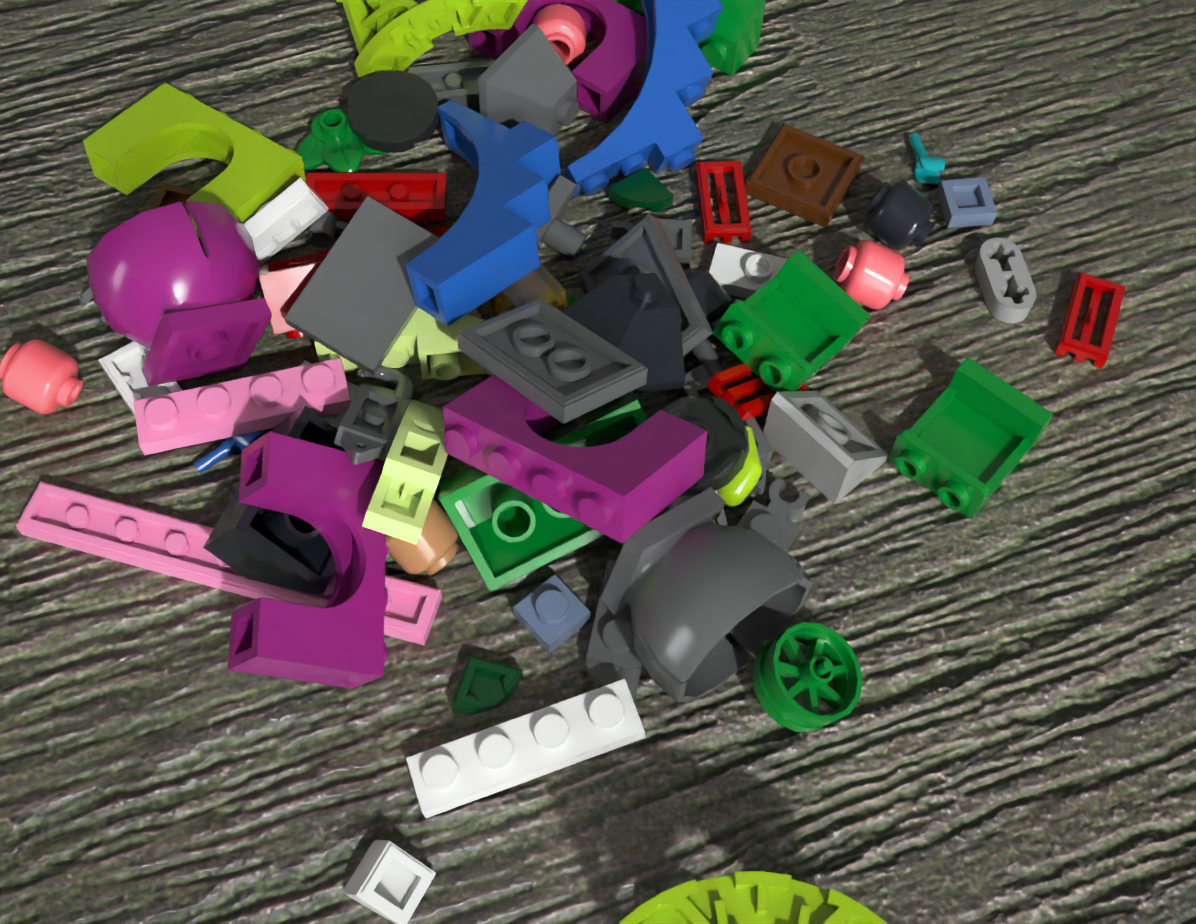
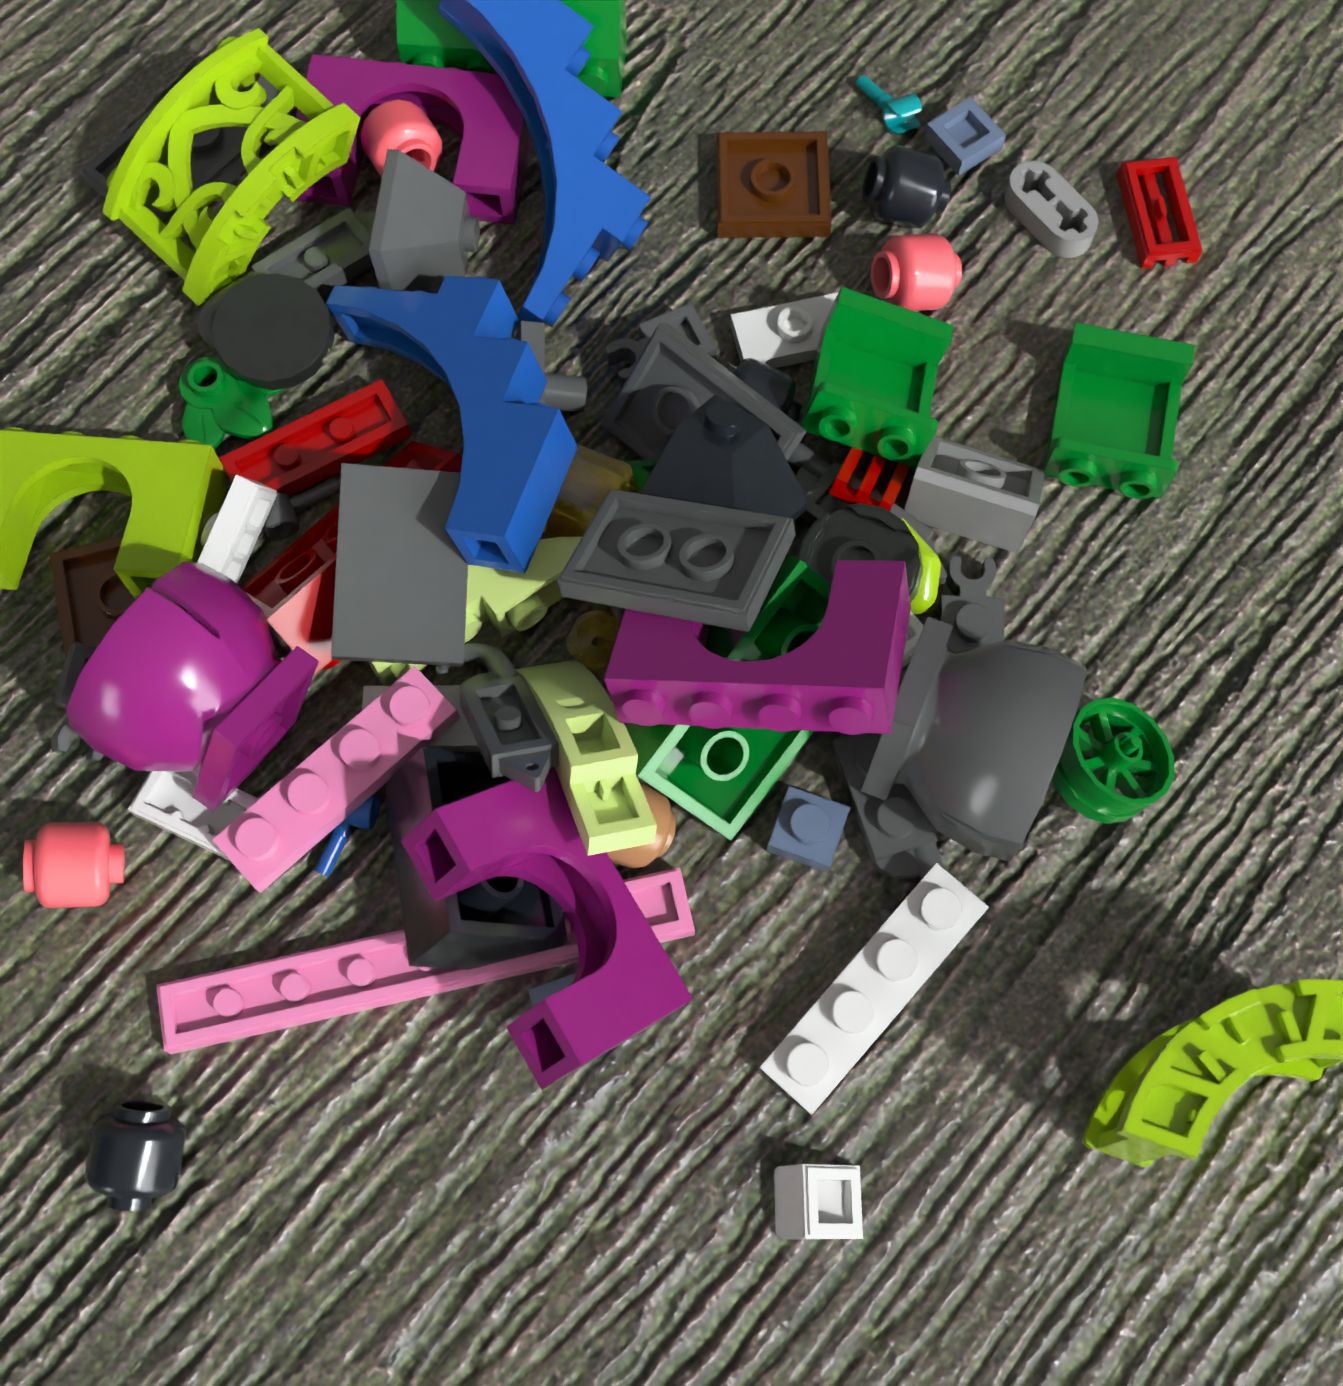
camera: 25 degrees left, 10 degrees up
(485, 686) = (787, 944): dark green tile -> none
(641, 191) = (609, 292): dark green tile -> none
(725, 228) = (725, 294): red tile -> none

